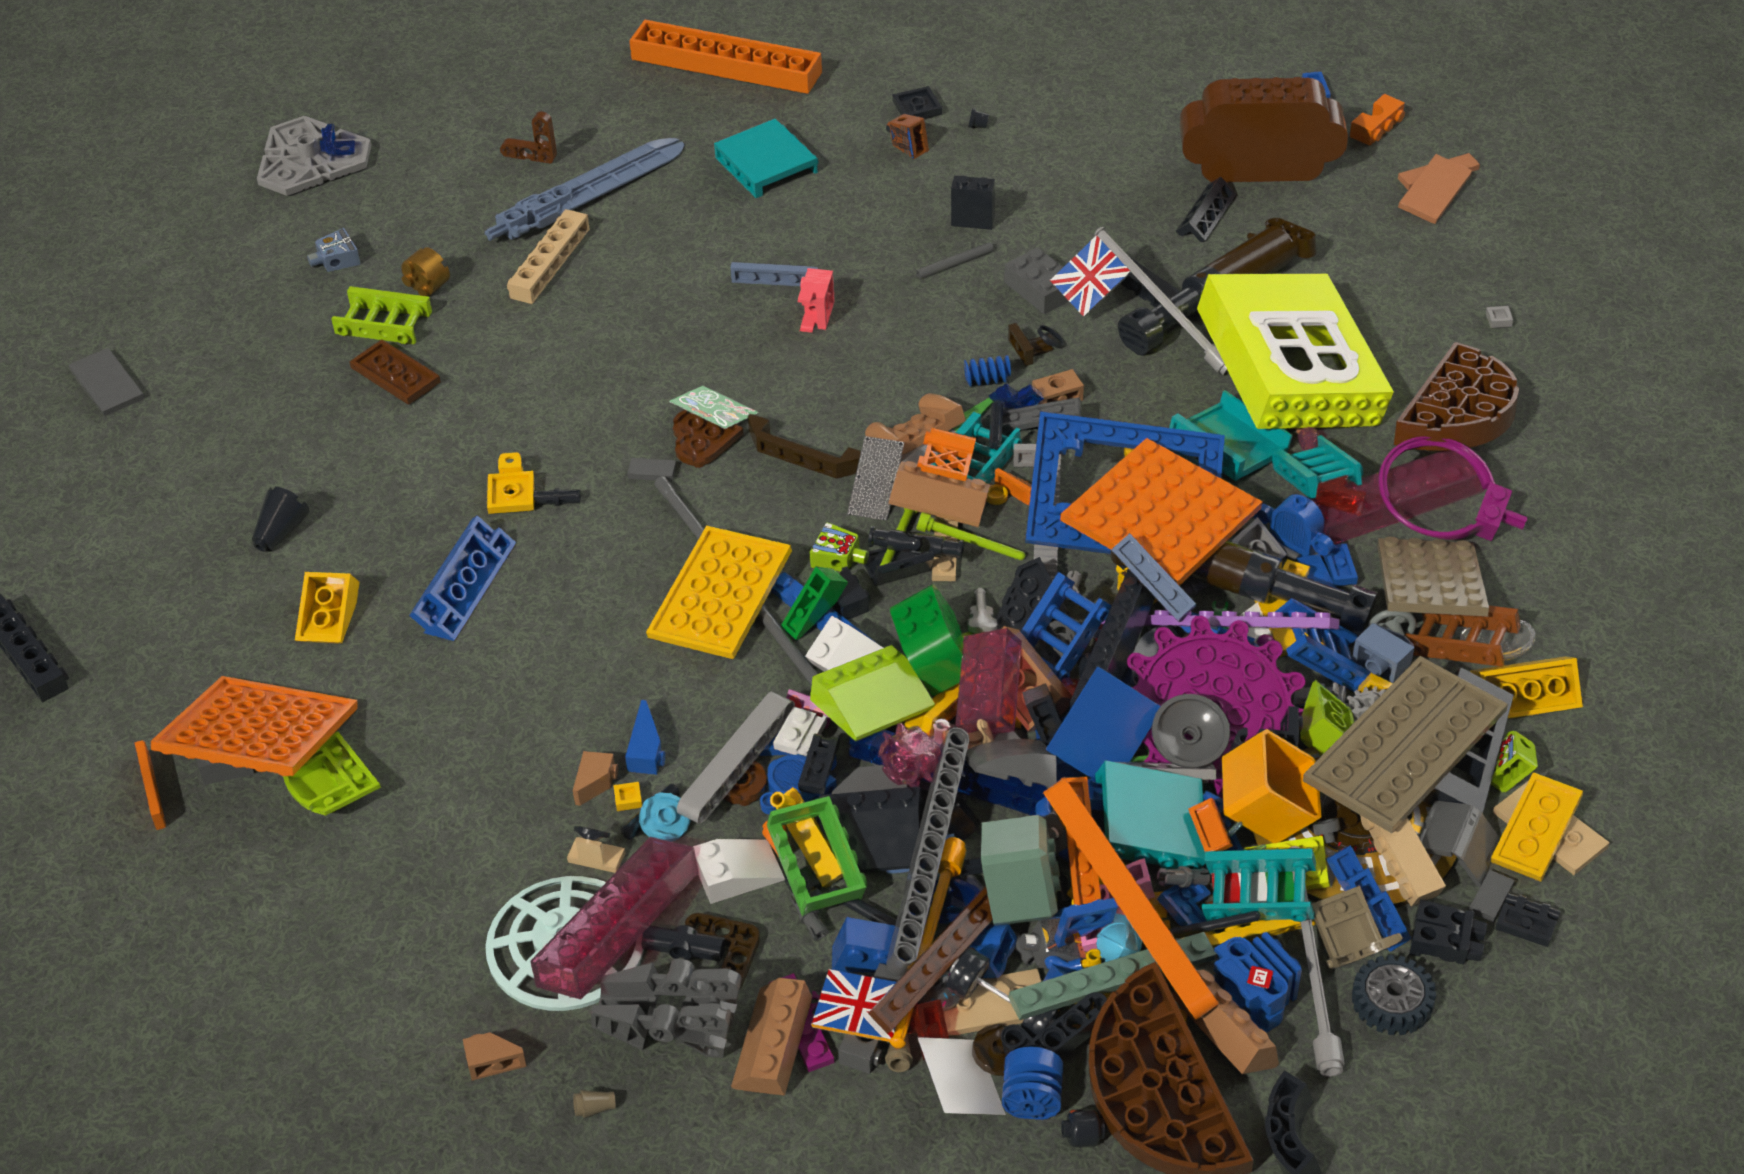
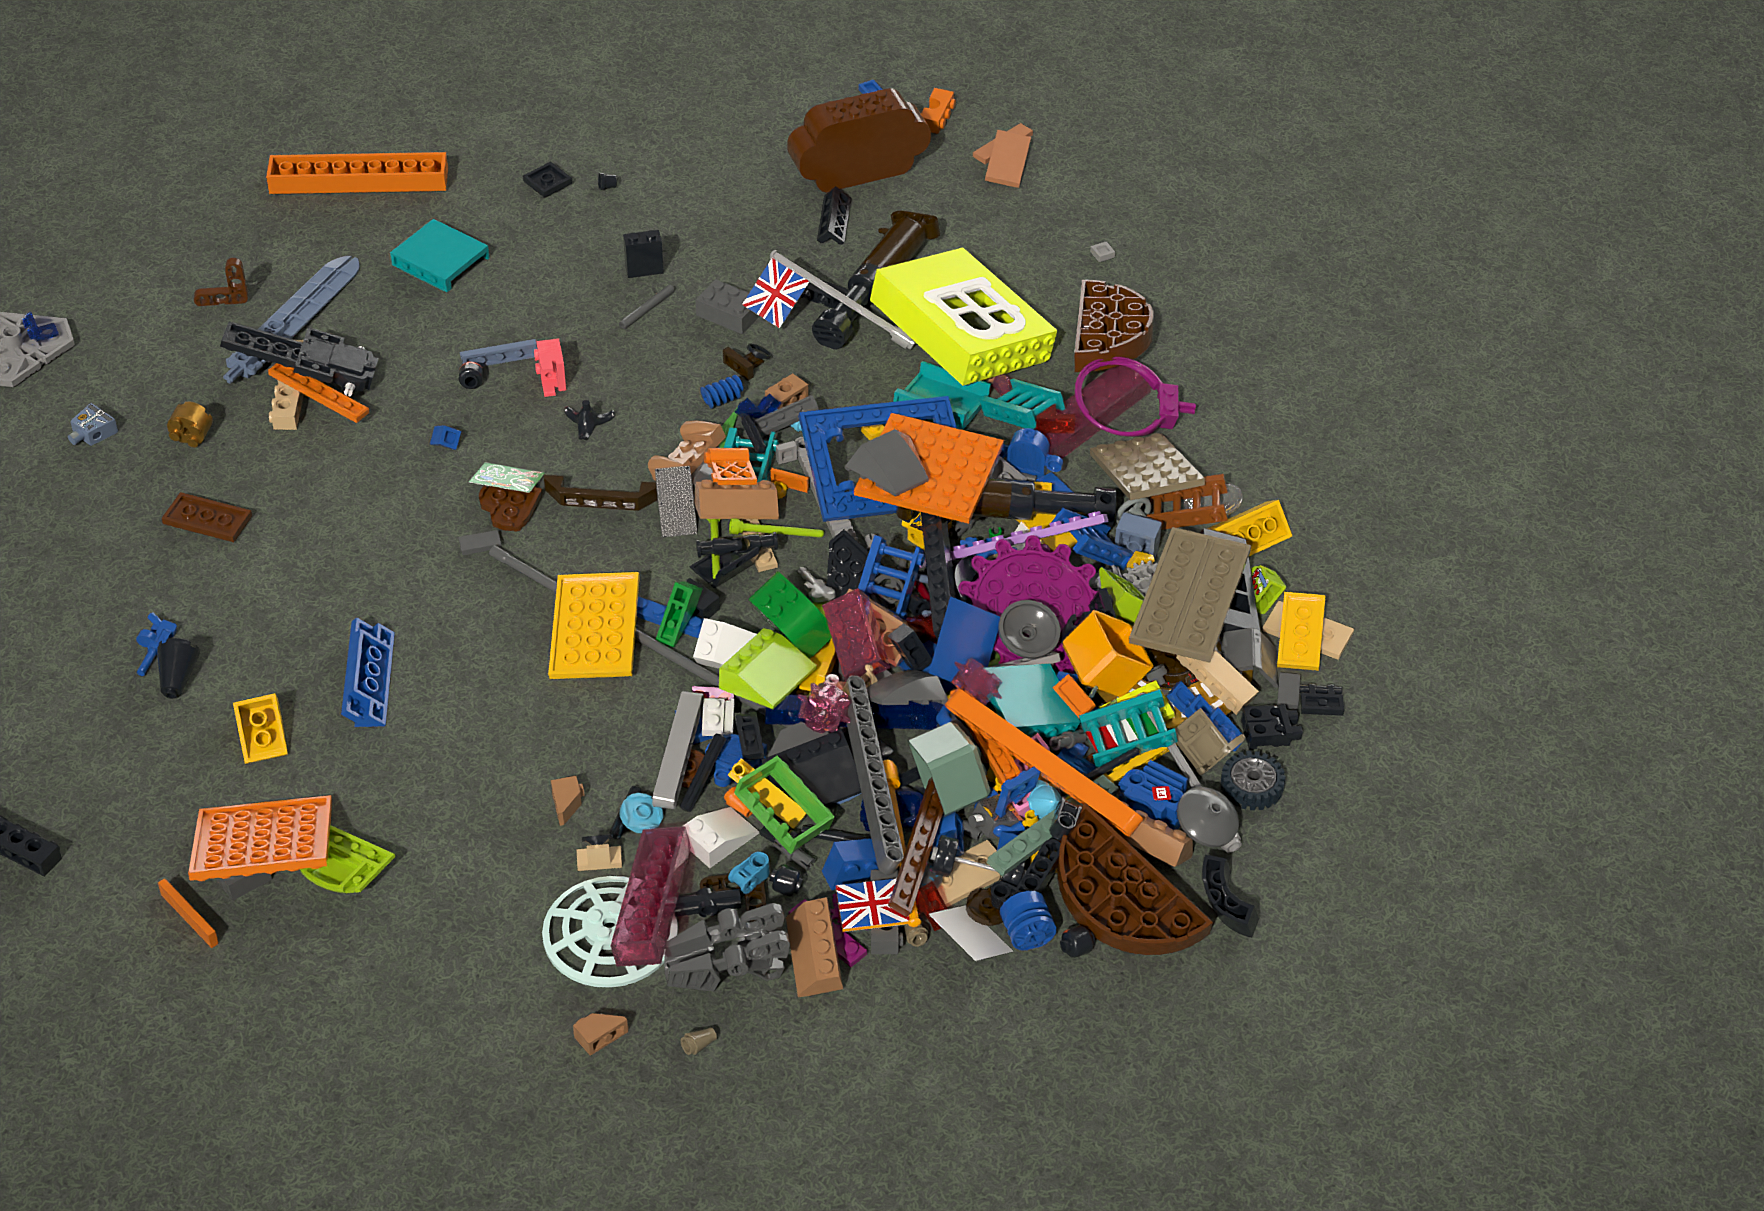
camera: 25 degrees left, 0 degrees up
(289, 479) = (149, 639): none -> blue piece
(382, 301) = (167, 458): lime fence -> none
(510, 478) = (362, 580): yellow plate -> none
(557, 497) = (410, 585): black pin -> none
(567, 269) = (320, 392): none -> orange tile
(580, 234) = (318, 357): none -> black piece
(627, 796) = (601, 806): yellow plate -> none
(644, 748) = (596, 761): blue slope -> none
(673, 348) = (445, 437): none -> blue panel
(732, 289) = (470, 375): none -> black head
(744, 924) = (750, 872): none -> dark azure piece
(750, 791) = (702, 772): none -> black axle
(783, 945) = (786, 880): none -> black head
(830, 365) = (587, 419): none -> black piece
(837, 549) = (672, 566): lime torso -> none
(909, 135) = (556, 207): dark orange torso -> none
(1088, 776) = (977, 681): none -> clear pink brick
(1112, 493) = (890, 463): none -> dark grey wedge
(1122, 971) = (1064, 818): none -> black piece
(1154, 577) = (949, 520): sand blue plate -> none
(1298, 1034) = (1200, 820): none -> dark grey dish
(1341, 566) = (1072, 477): blue plate -> none

